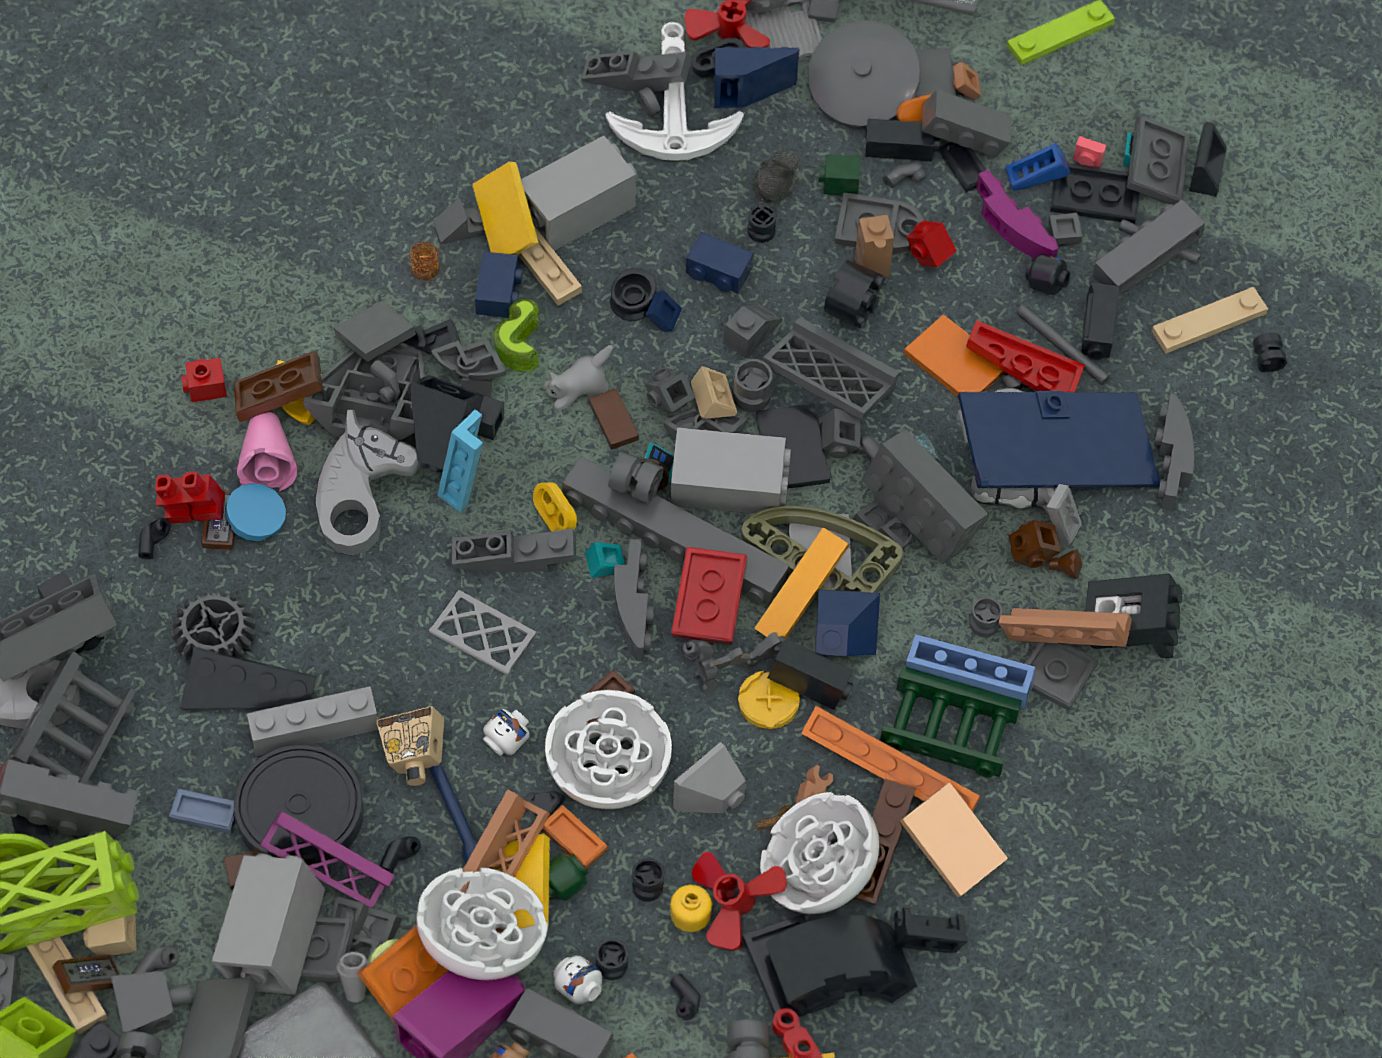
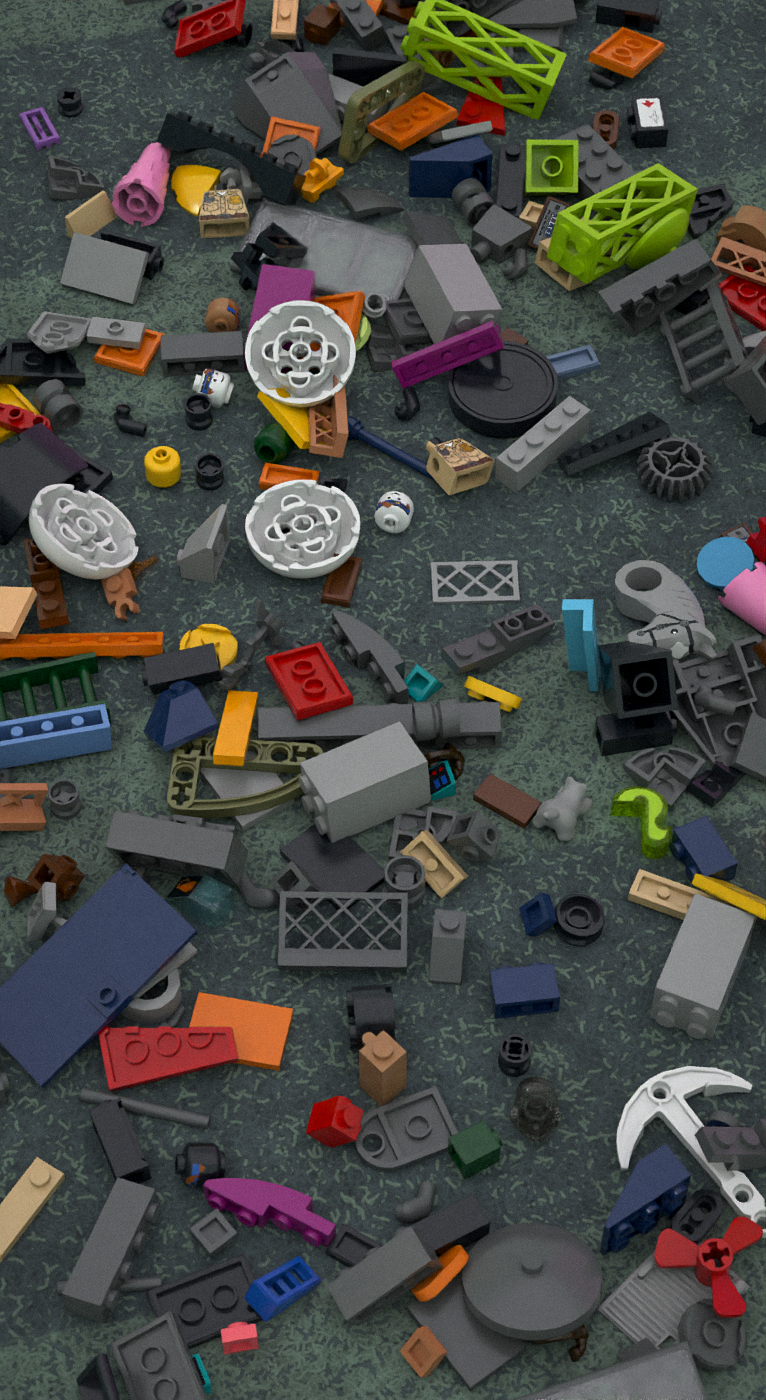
camera: 150 degrees right, 5 degrees down
(727, 927) = (134, 491): red piece -> none

